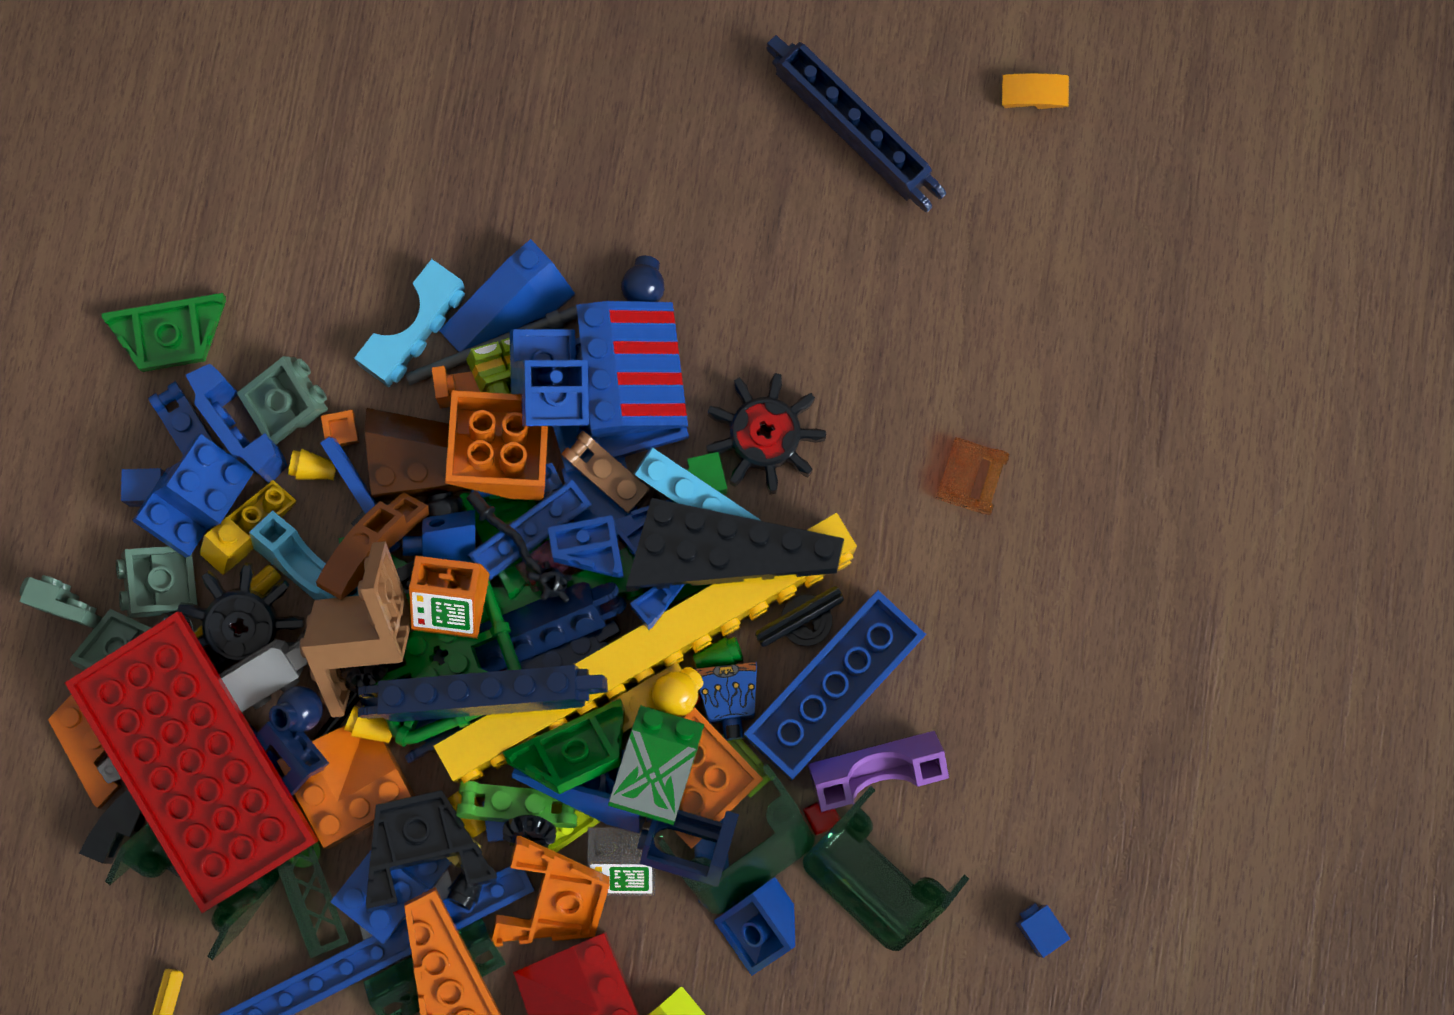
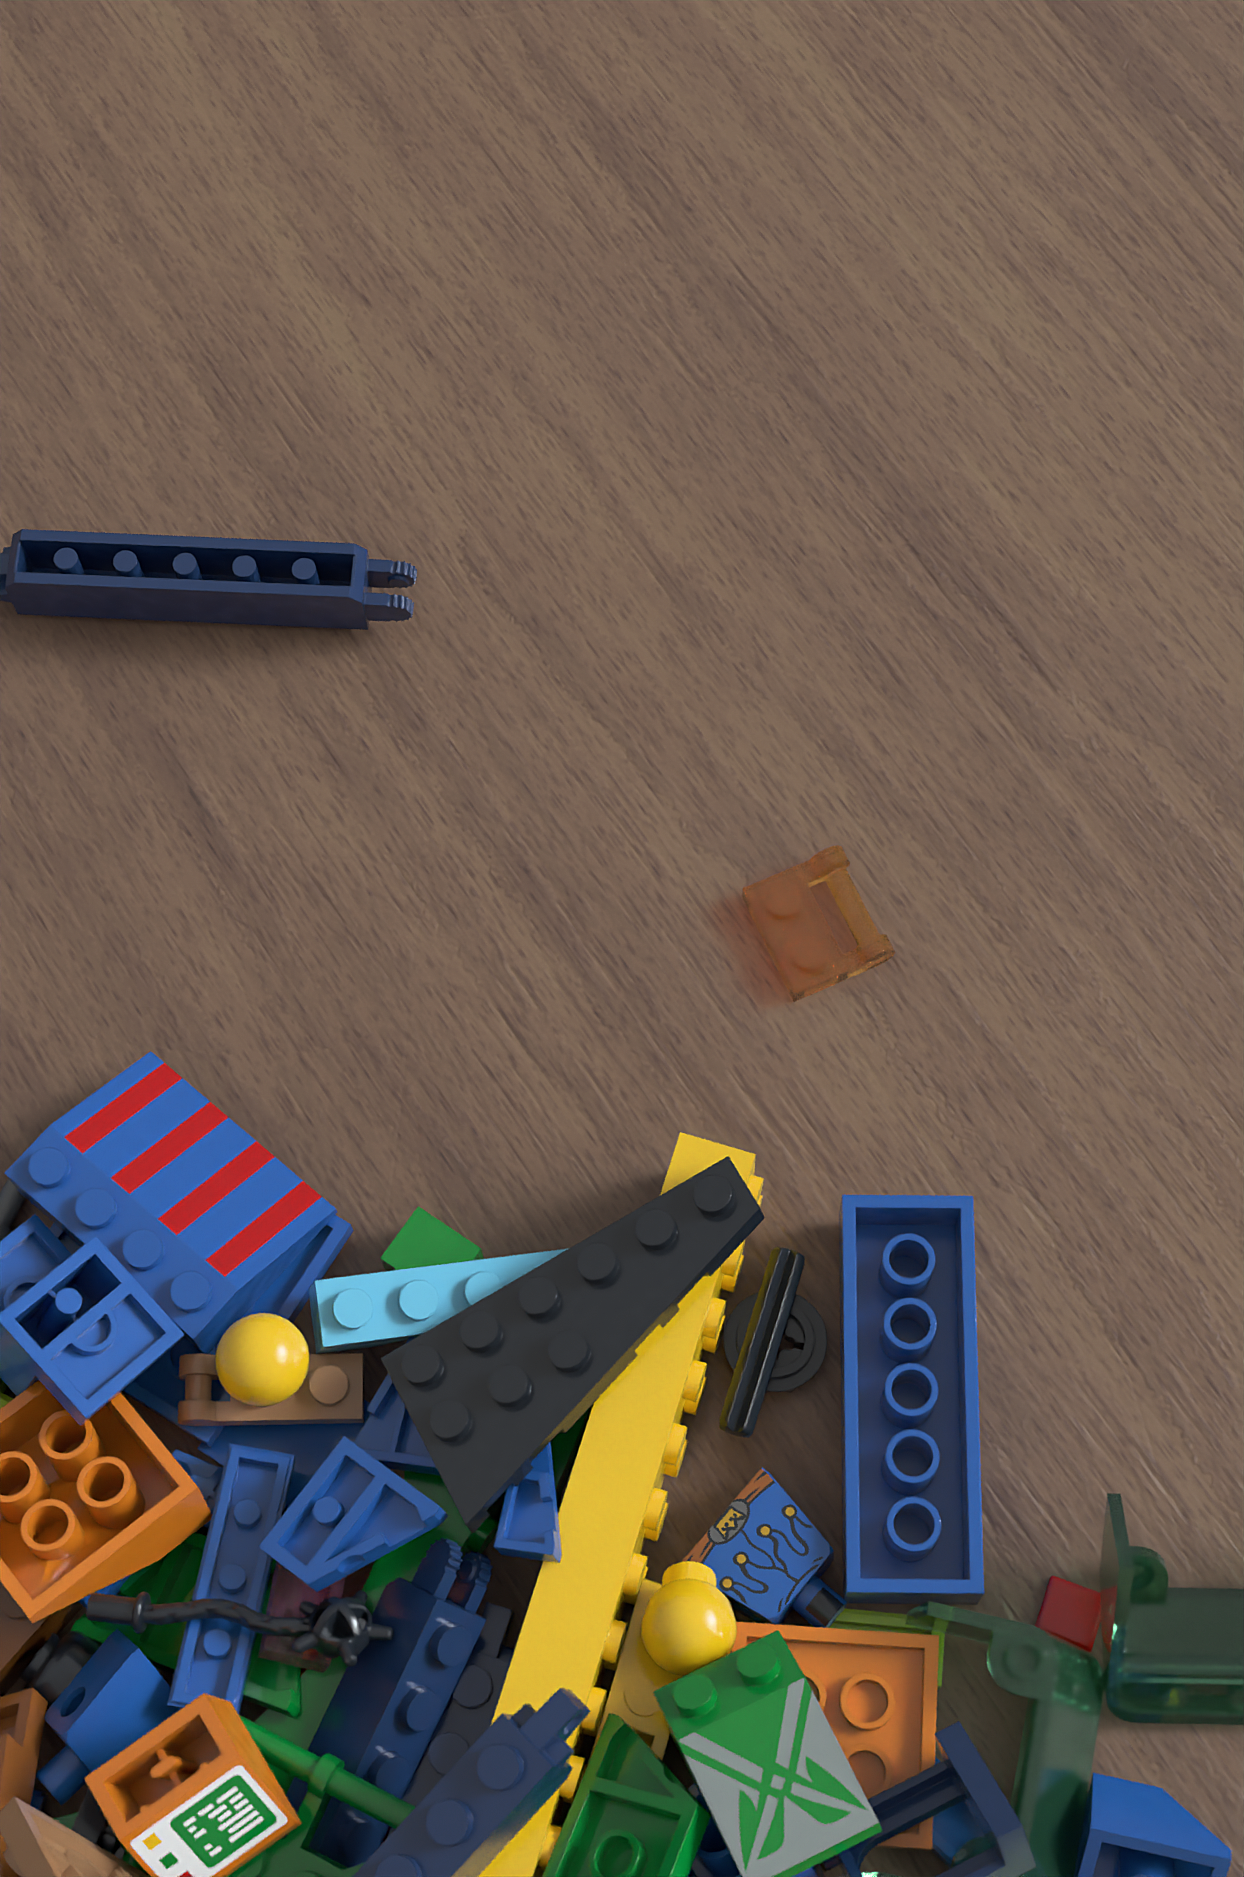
camera: 35 degrees left, 10 degrees down
(607, 460) = (262, 1359): none -> yellow piece
(643, 281) = (77, 1058): dark blue piece -> none
(720, 653) = (693, 1508): green cone -> none
(772, 416) = (475, 1155): black gear -> none
(911, 759) = (1125, 1400): medium lavender arch -> none
(1035, 90) = (411, 335): light orange slope -> none

